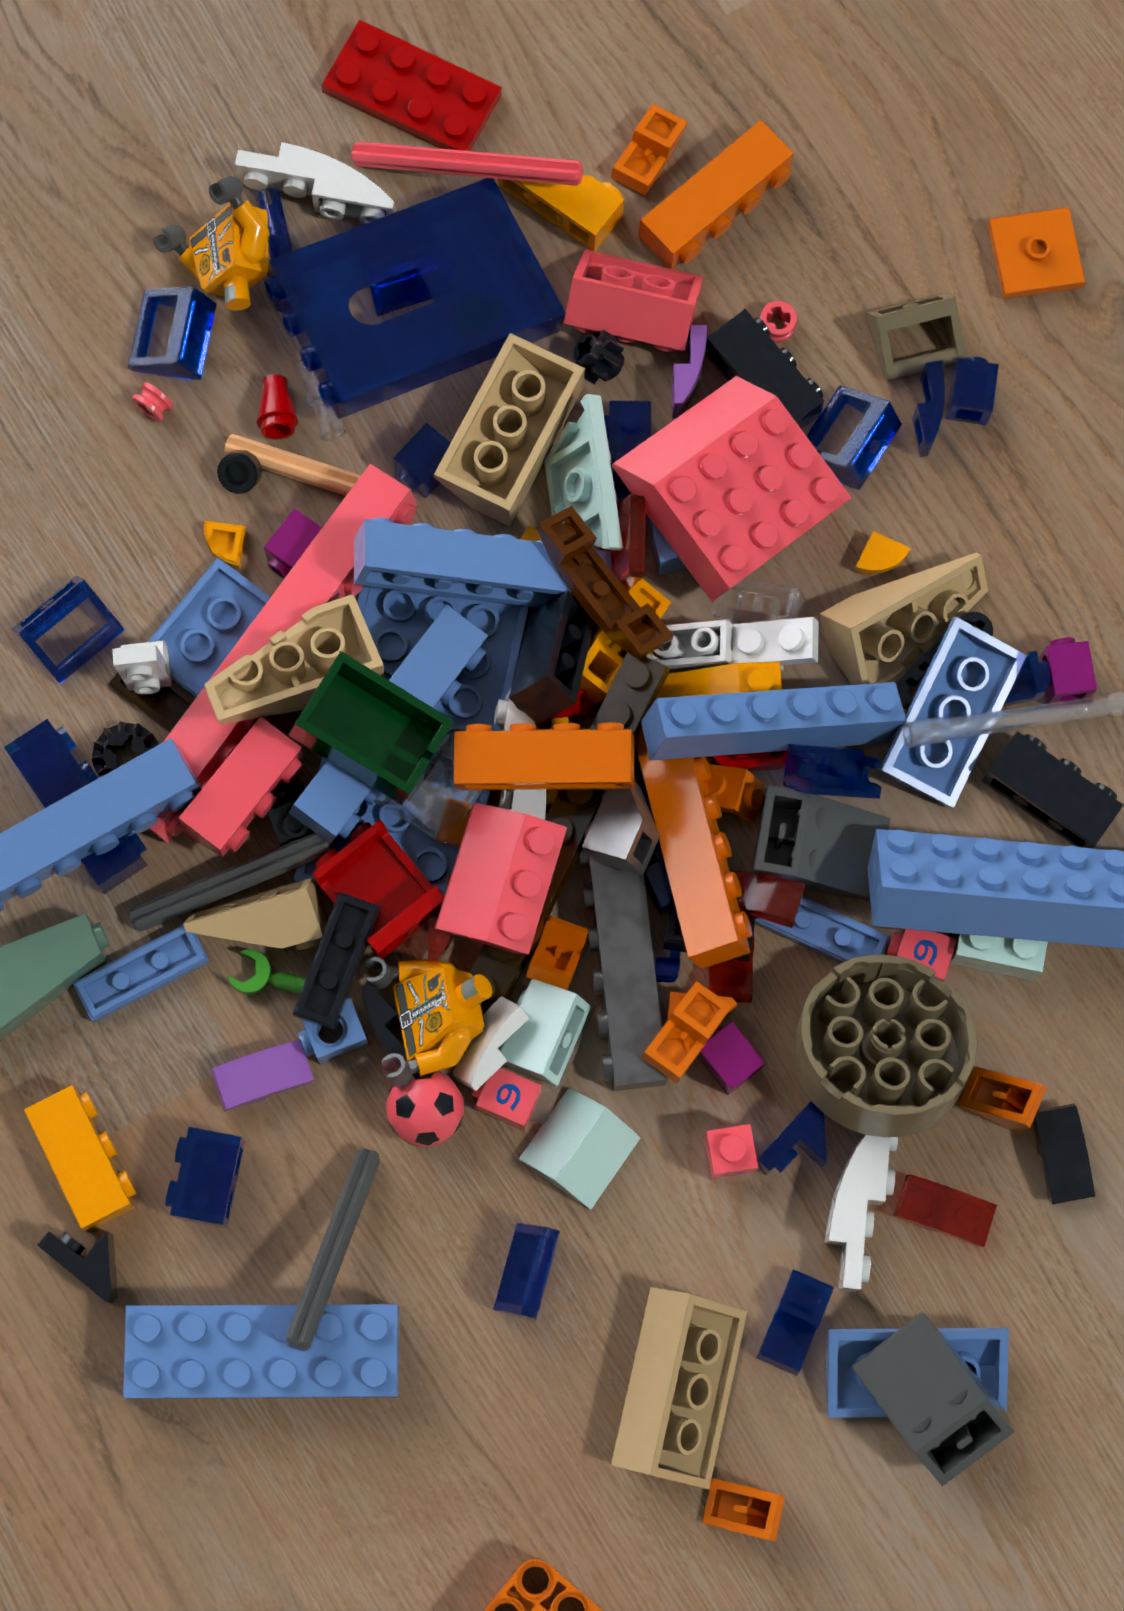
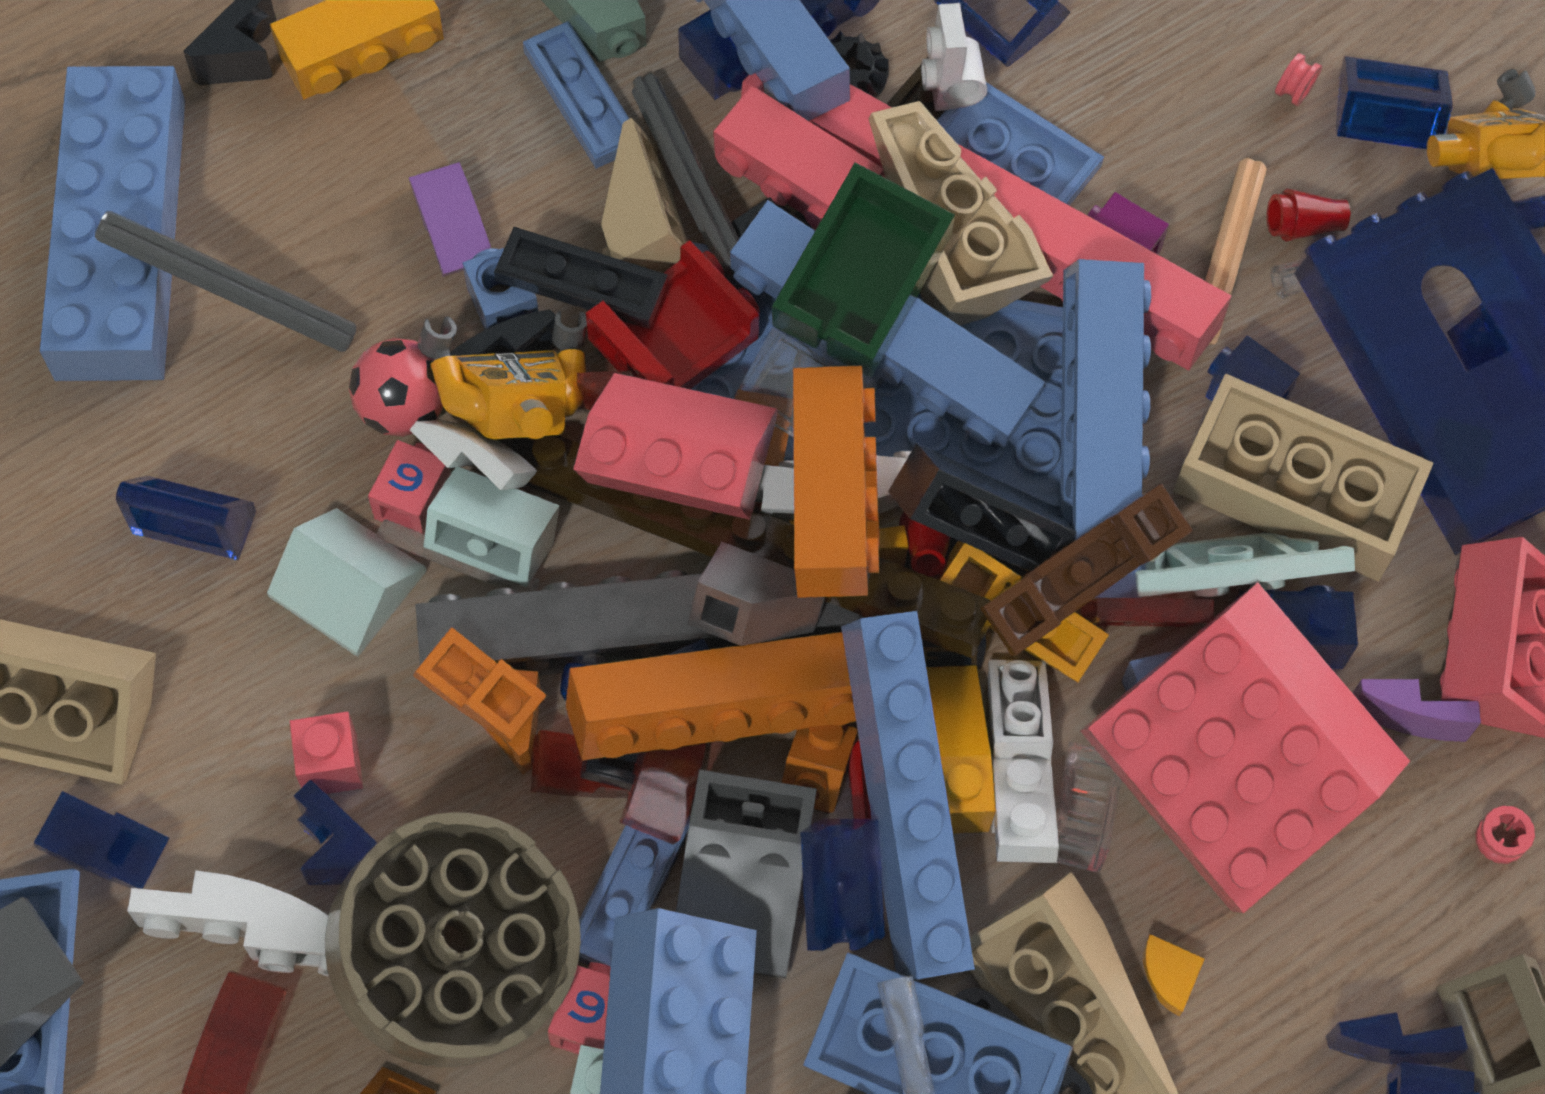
camera: 90 degrees right, 10 degrees down
(205, 1177) = (325, 156): clear blue brick -> none
(226, 542) = (1125, 169): light orange tile -> none
(239, 471) = (1217, 175): black tile -> none
(265, 976) = (576, 220): bright green piece -> none
(557, 953) = (592, 543): orange bracket -> none
(599, 356) = (1420, 591): black gear -> none
(730, 1058) = (453, 756): magenta brick -> none
(747, 351) = (1421, 811): black brick -> none
(866, 442) = (1334, 947): clear blue tile -> none

